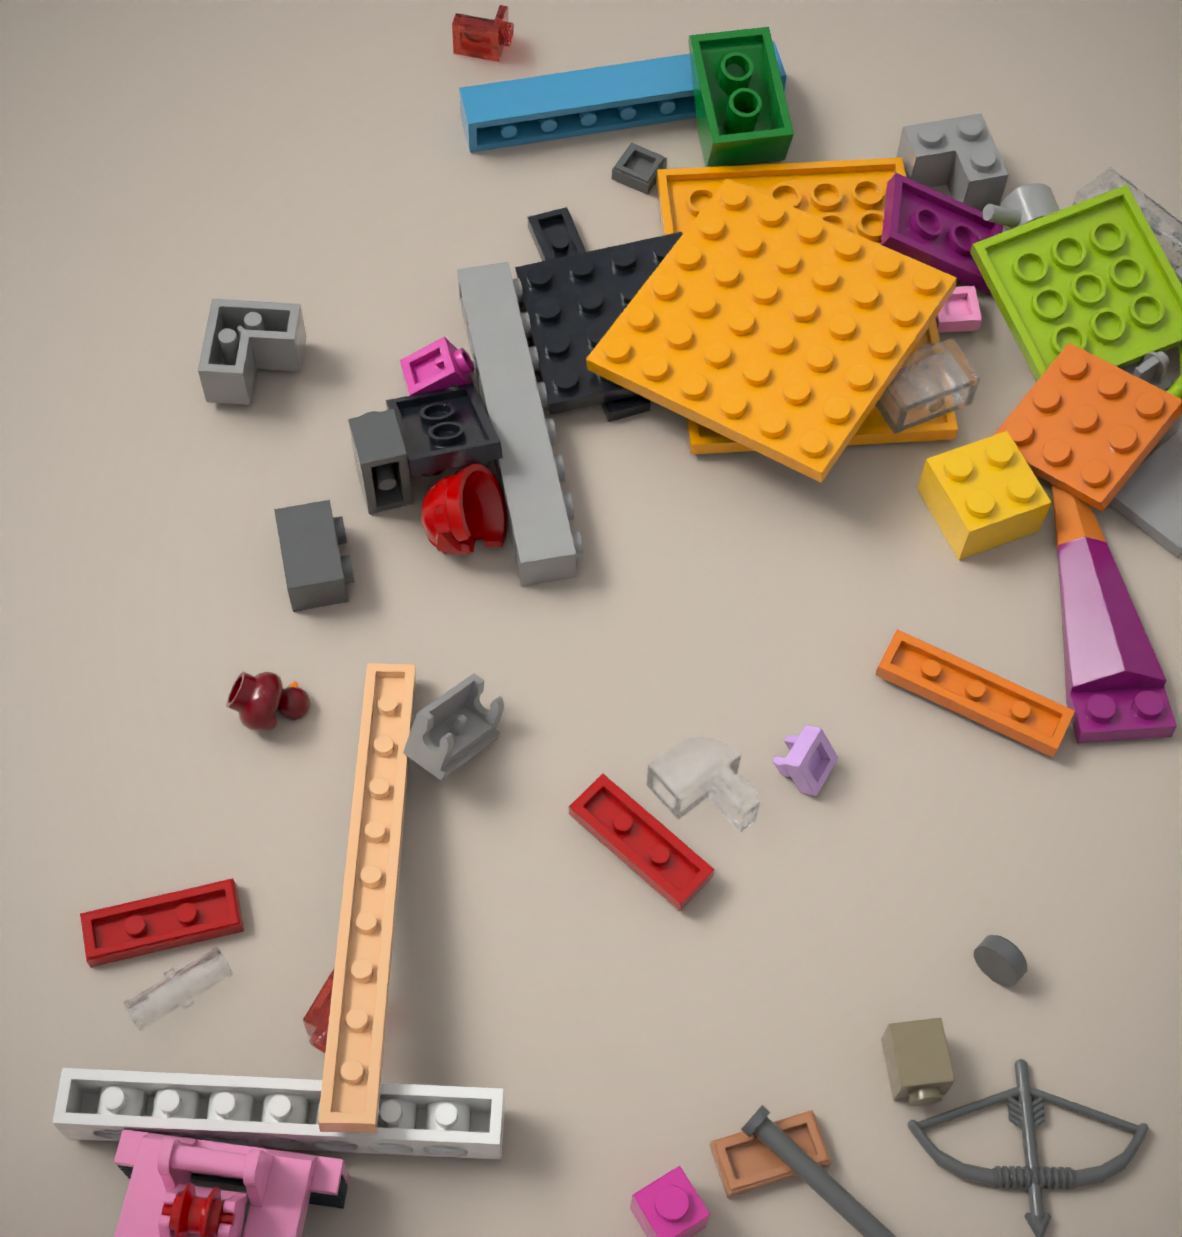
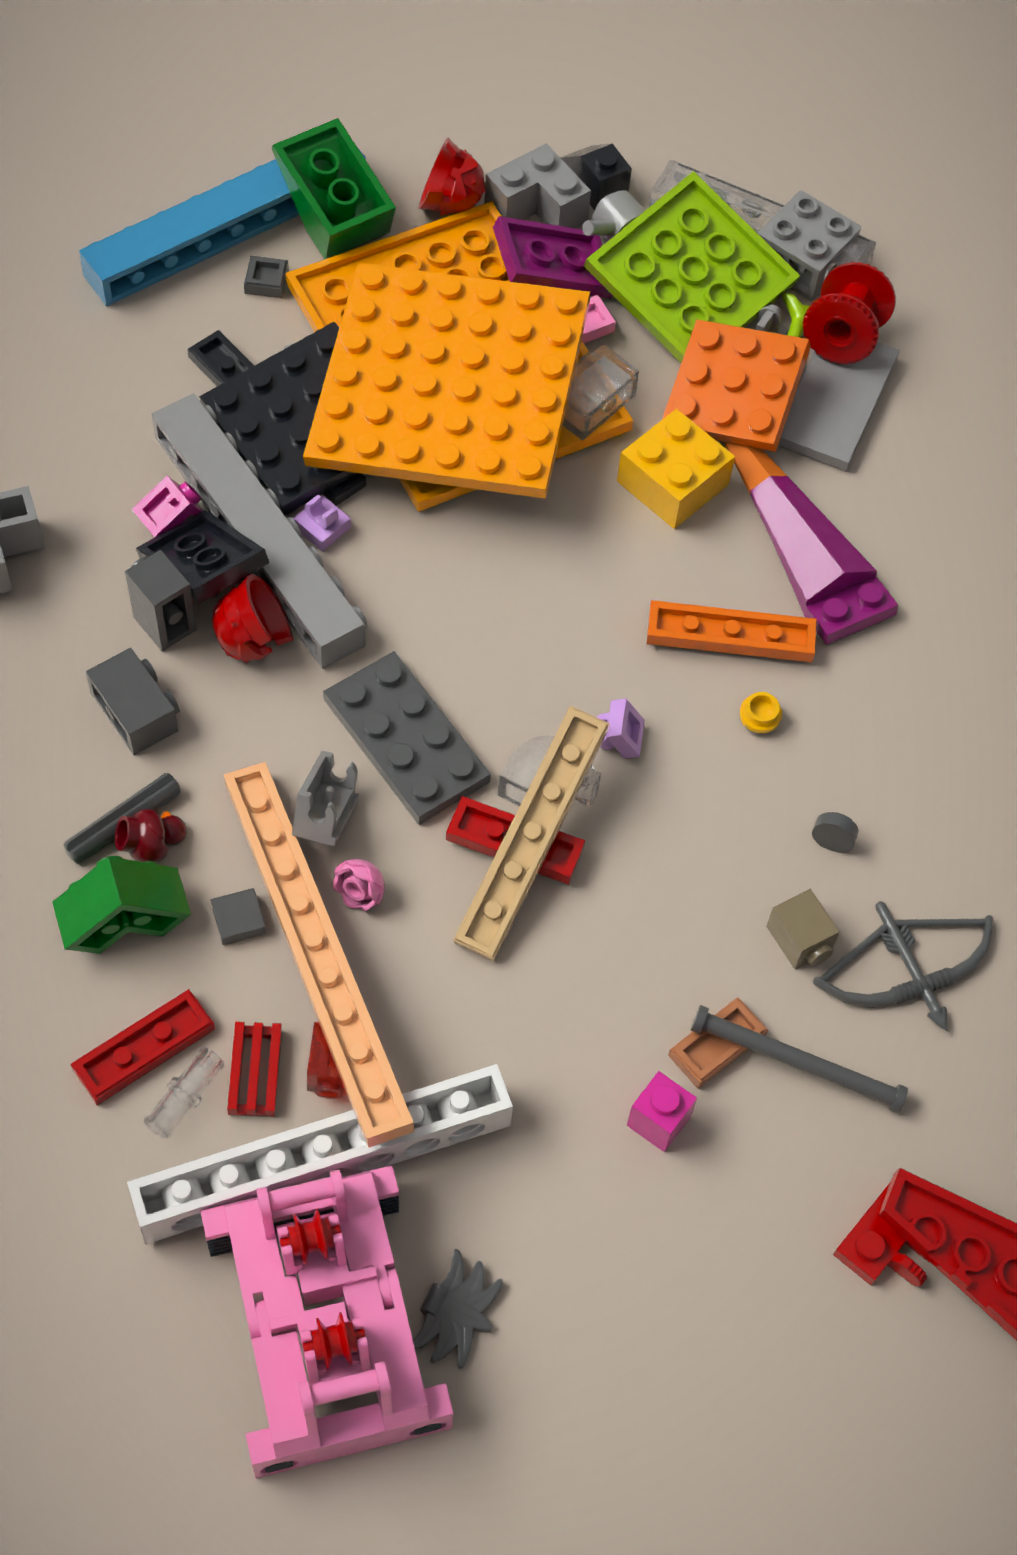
camera: 25 degrees left, 0 degrees up
(202, 760) = (117, 900): none -> green brick
(220, 680) = (103, 829): none -> dark grey axle
(245, 980) = (255, 1032): none -> red tile
(318, 818) = (238, 916): none -> dark grey tile
(456, 829) = (359, 884): none -> bright pink plate
(482, 36) = (73, 197): clear red bracket -> none
(576, 689) = (406, 737): none -> dark grey plate
(586, 433) = (322, 522): none -> lavender tile
(656, 841) = (531, 834): none -> tan tile
(870, 127) = (453, 182): none -> red helmet
(971, 795) = (760, 712): none -> yellow plate
(1029, 158) = (601, 170): none -> black slope

